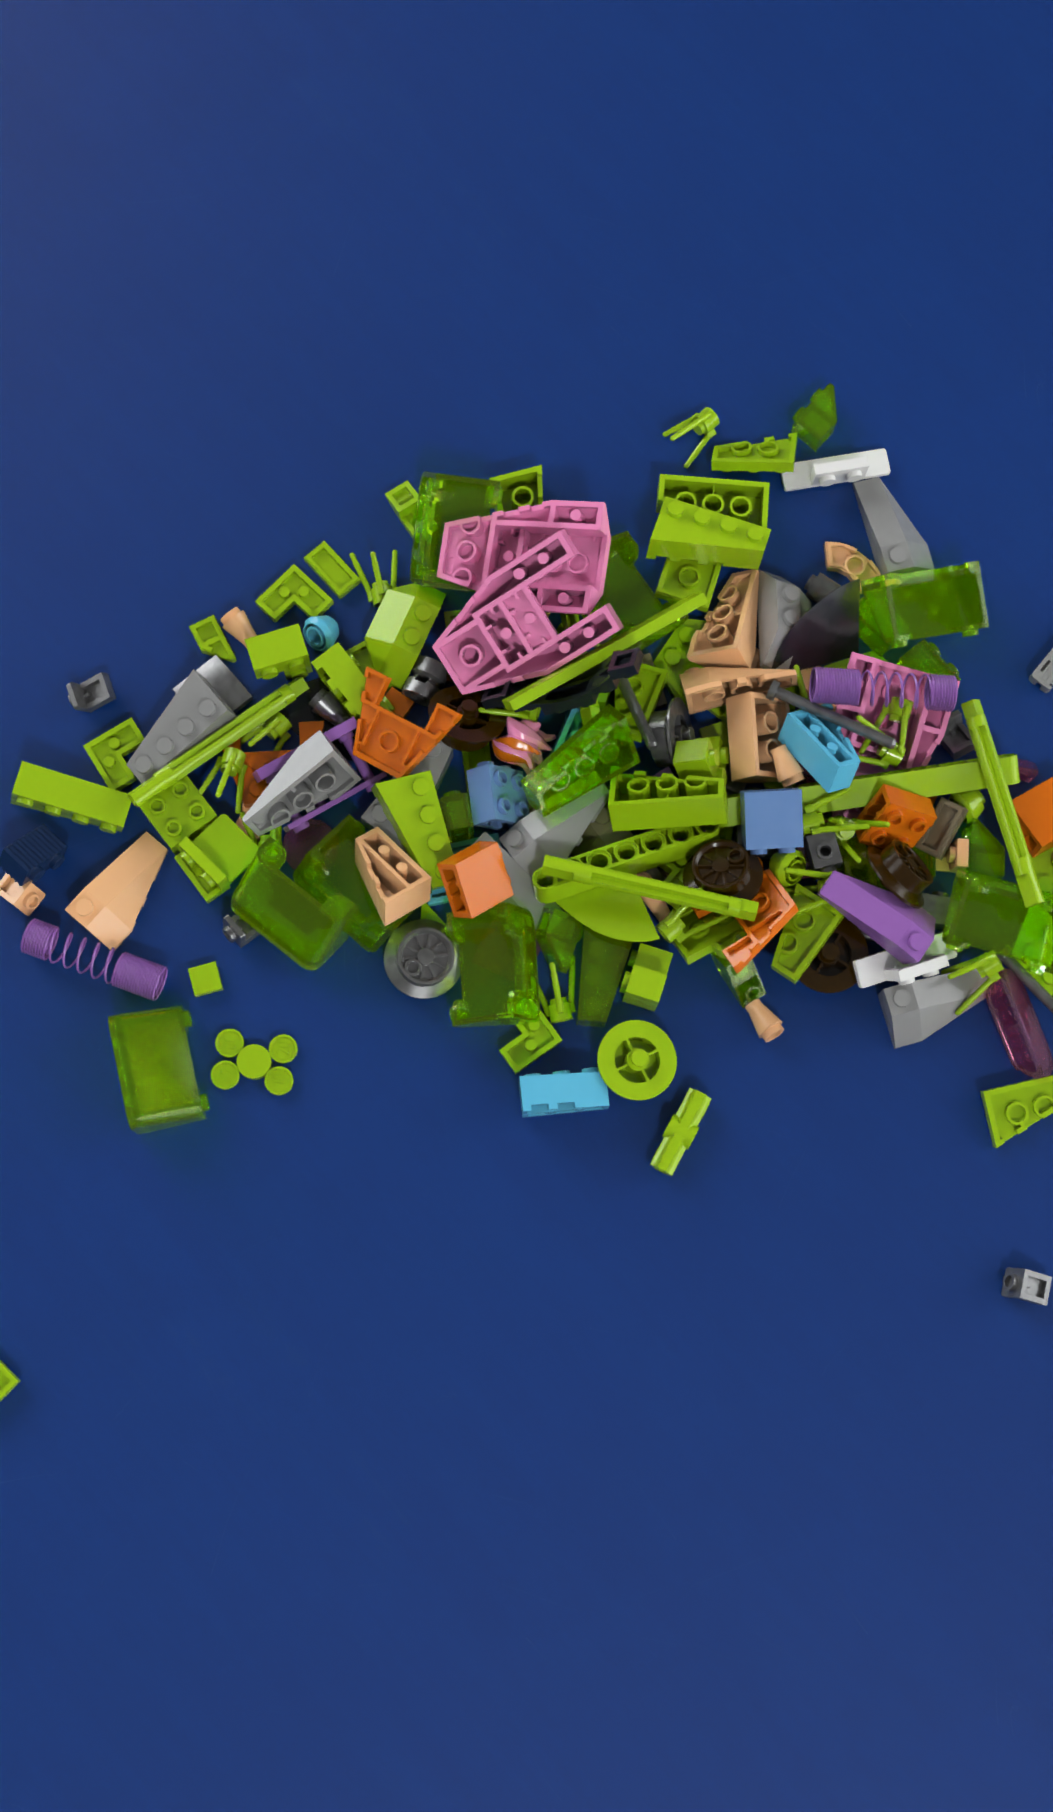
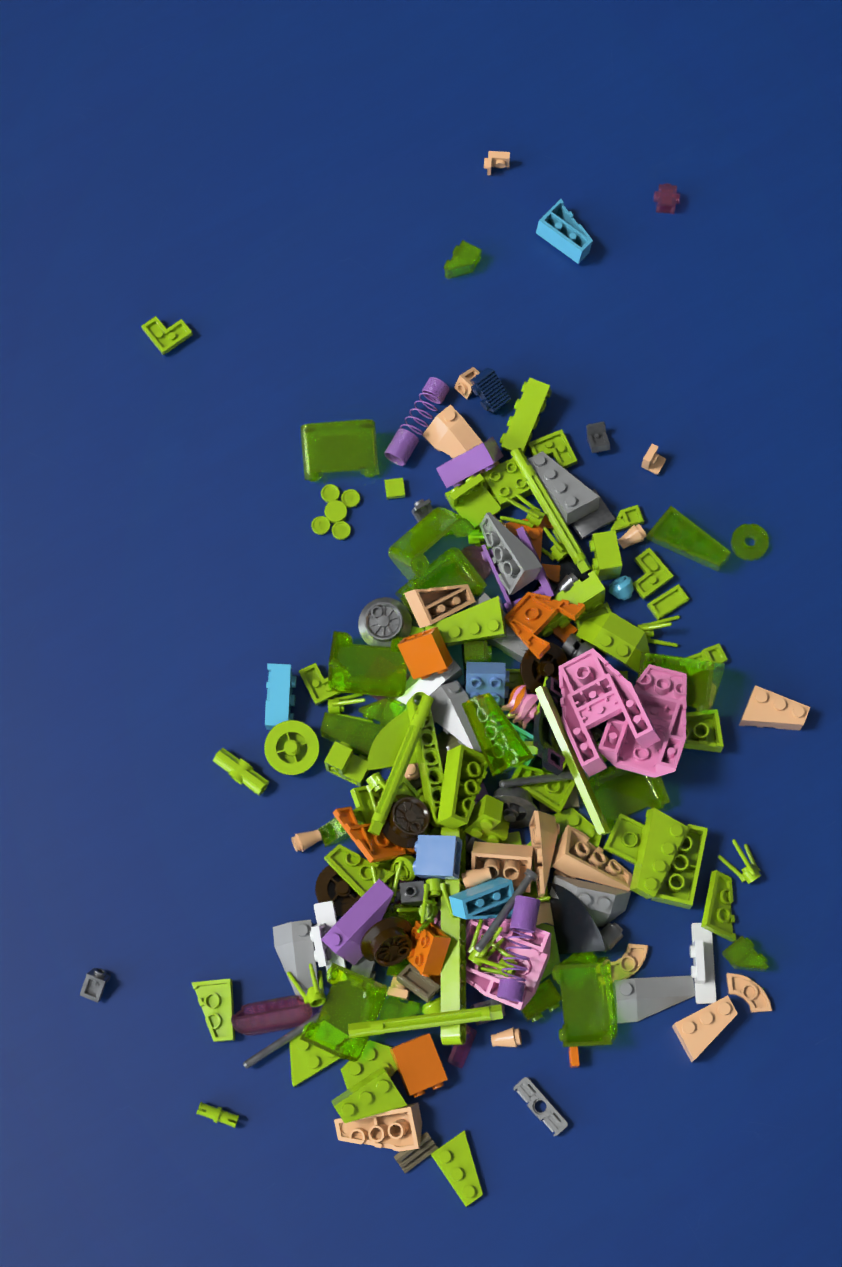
camera: 105 degrees right, 5 degrees down
(117, 611) = (652, 461): none -> light nougat bracket
(159, 867) = (470, 463): none -> medium lavender wedge
(229, 484) = (745, 551): none -> clear neon green tile
(237, 547) = (687, 539): none -> clear neon green wedge
(473, 415) = (774, 711): none -> light nougat wedge
(860, 409) = (749, 991): none -> light nougat tile
(920, 457) = (704, 1026): none -> light nougat wedge
(989, 704) = (507, 1038): none -> light nougat cone
(998, 615) = (574, 1057): none -> orange tile

